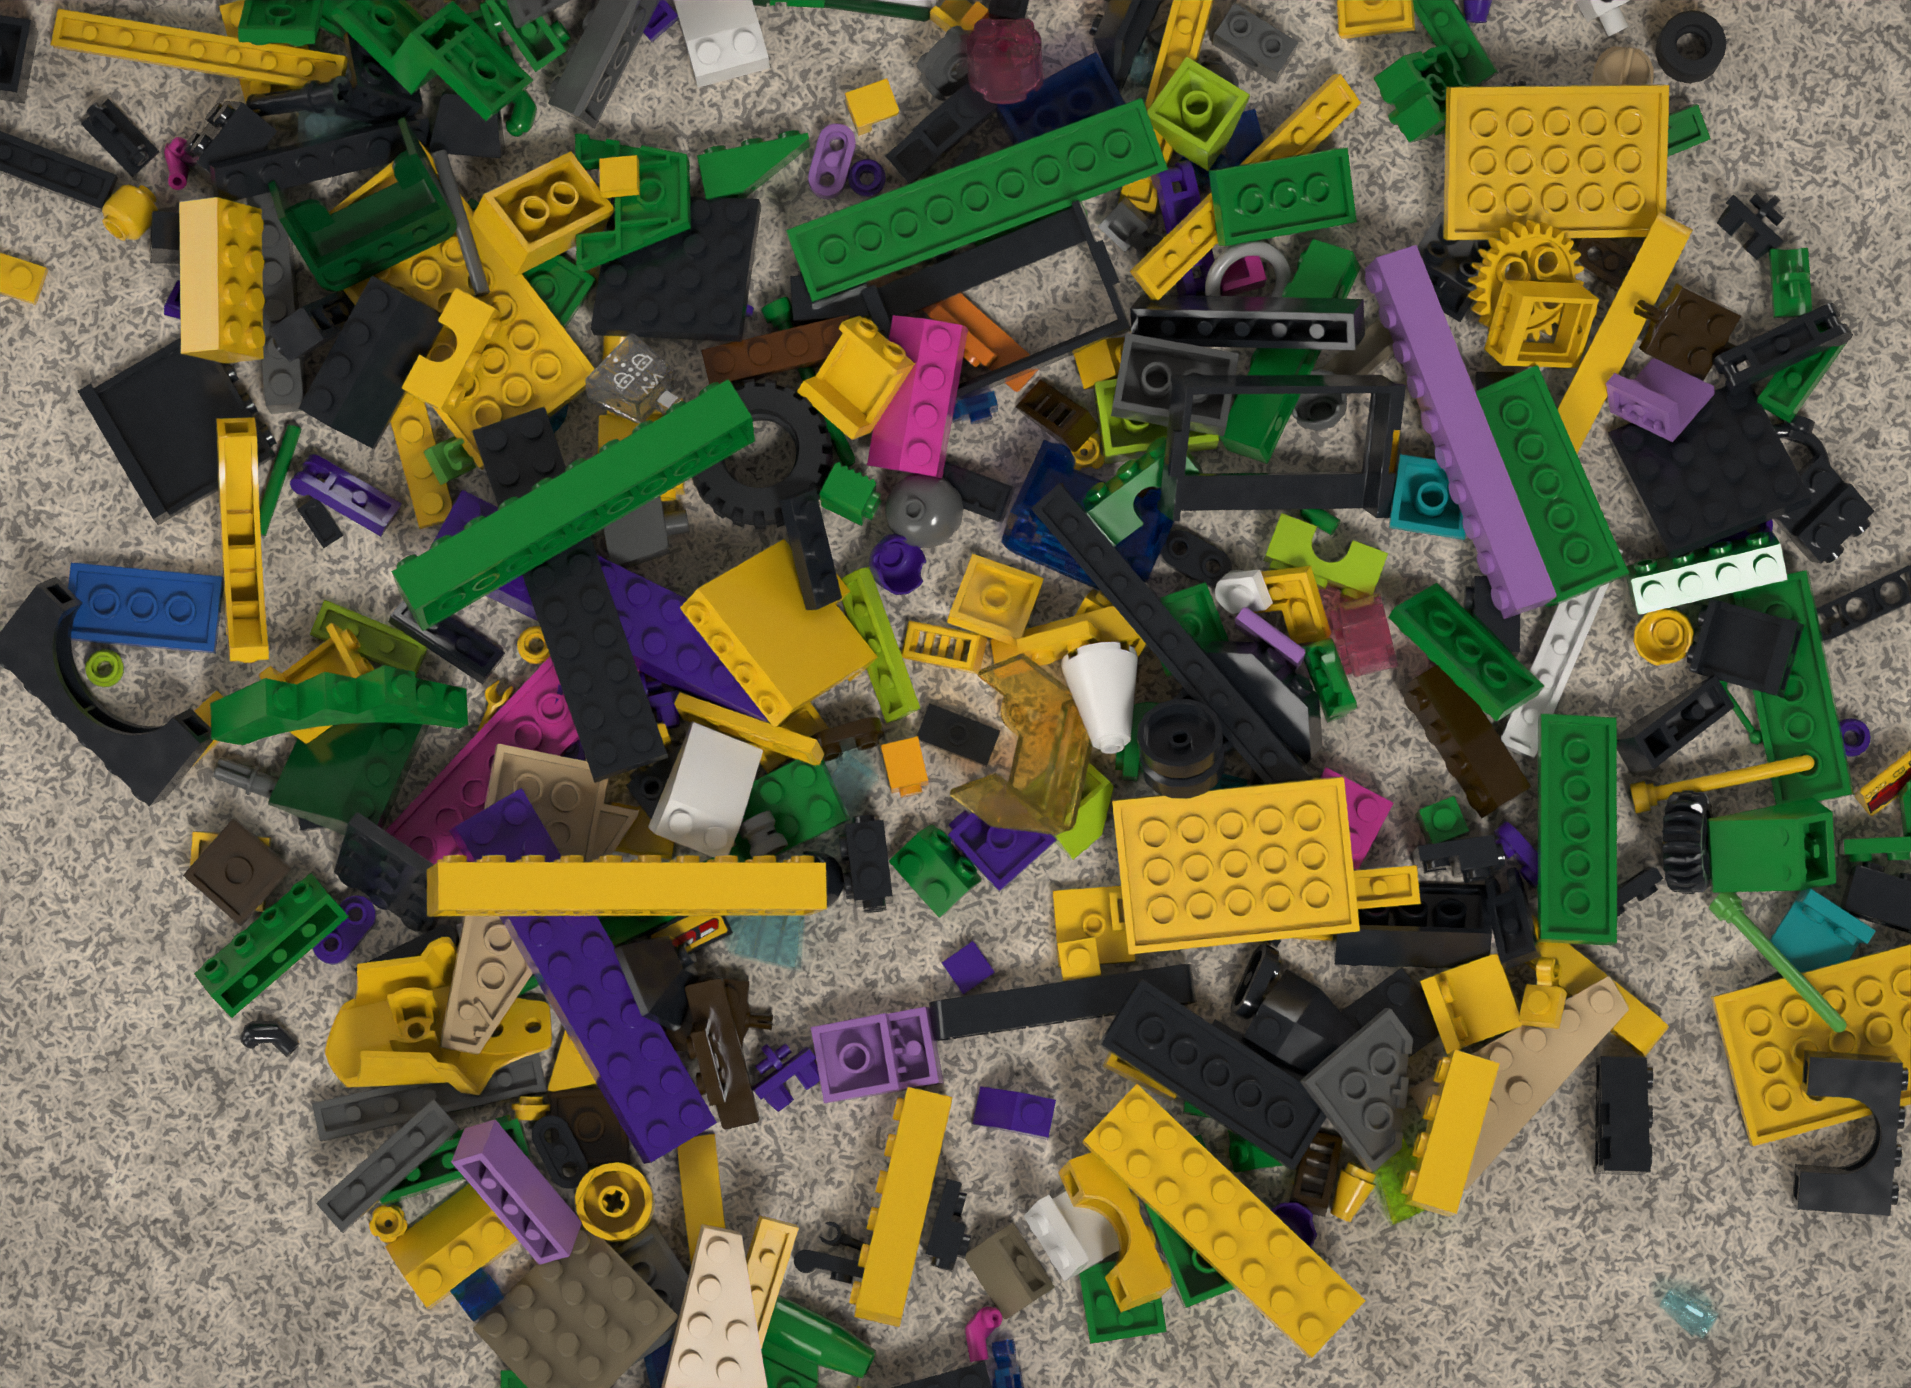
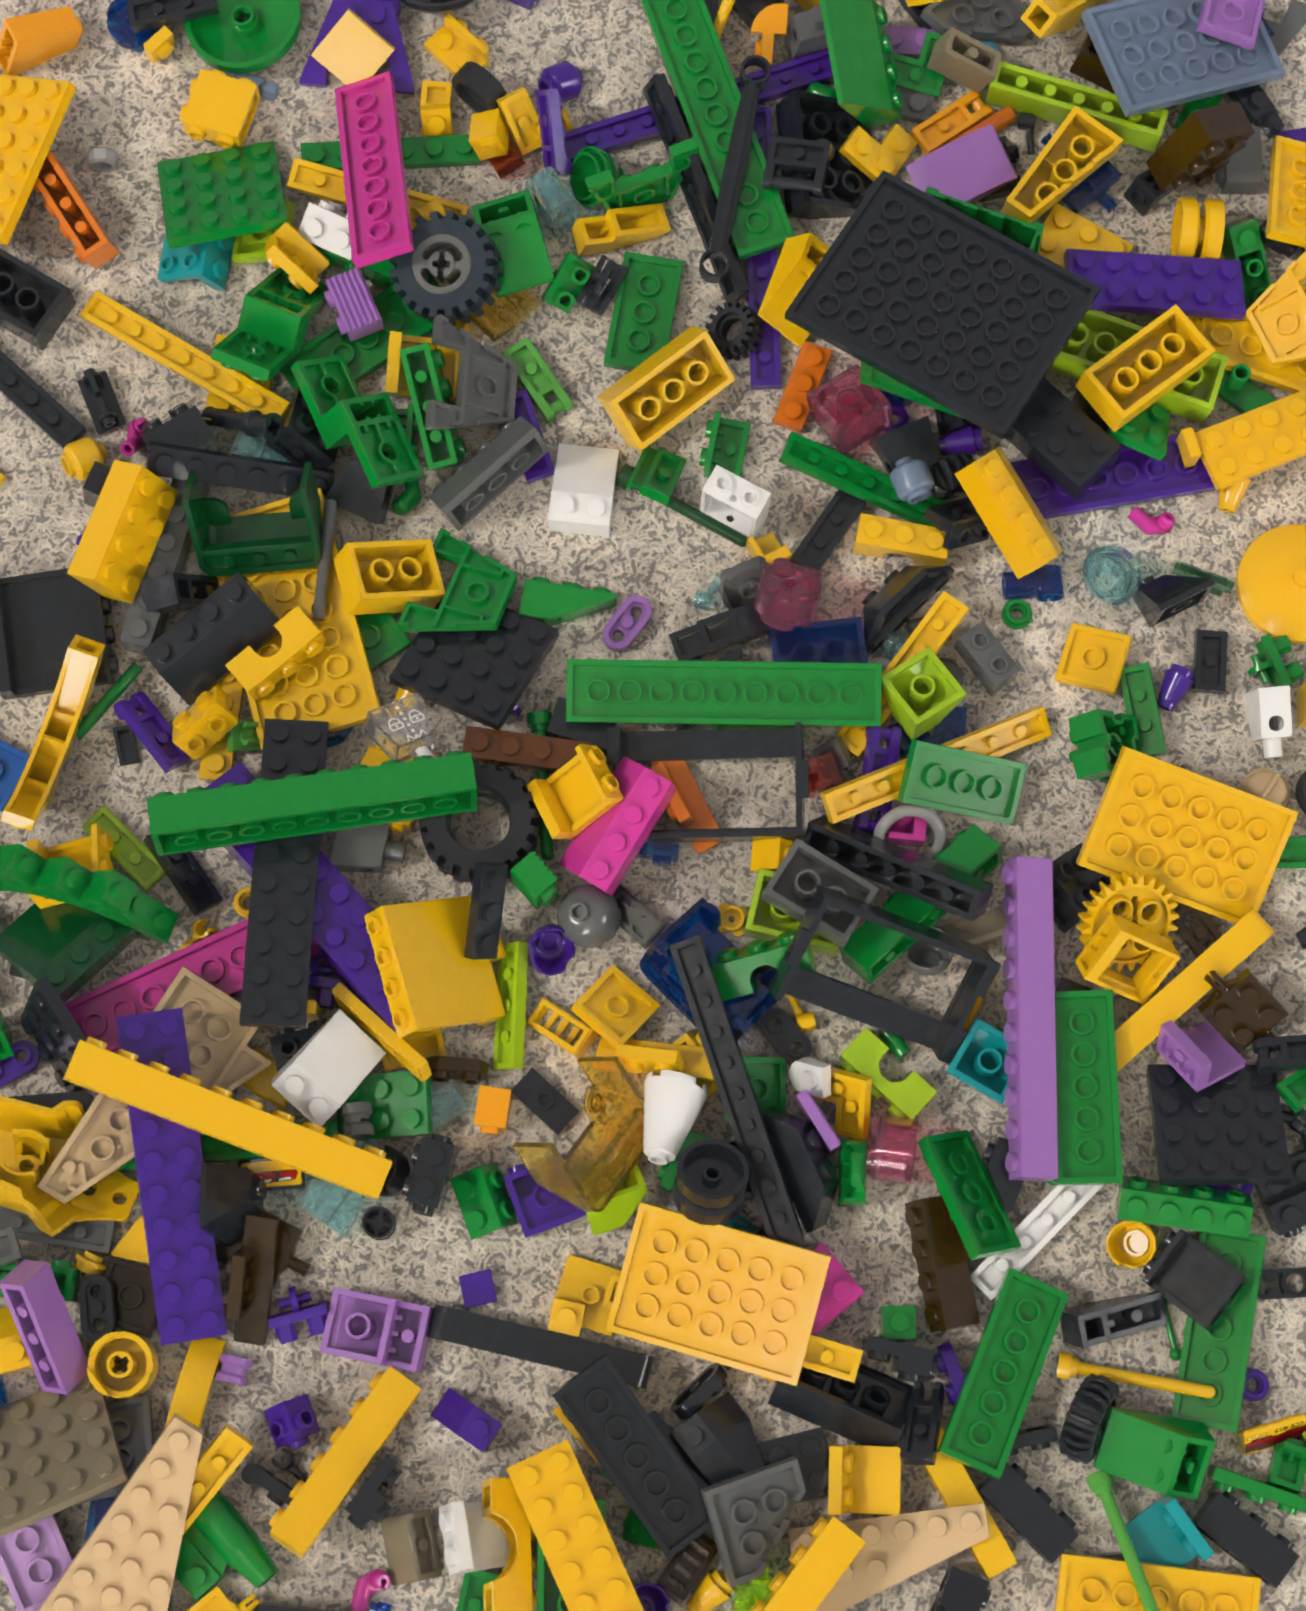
camera: 20 degrees right, 5 degrees down
(400, 463) = (203, 723): none -> yellow bracket
(619, 176) = (458, 571): yellow tile -> none
(737, 1159) = (234, 1369): none -> medium lavender wheel
(826, 1189) = (292, 1422): none -> dark purple brick
(829, 934) = (379, 1223): none -> black wheel
(866, 166) = (650, 637): dark purple plate -> none
(871, 105) = (673, 592): yellow panel -> none
(907, 97) = (704, 599): none -> clear light blue hand
(1074, 429) = (734, 894): dark brown slope -> none
(1123, 247) = (823, 774): none -> clear red bracket
(1210, 533) = (804, 1021): none -> yellow hand
(1544, 1002) = (923, 1503): yellow plate -> none
(1661, 968) = (1029, 1512): none -> black brick

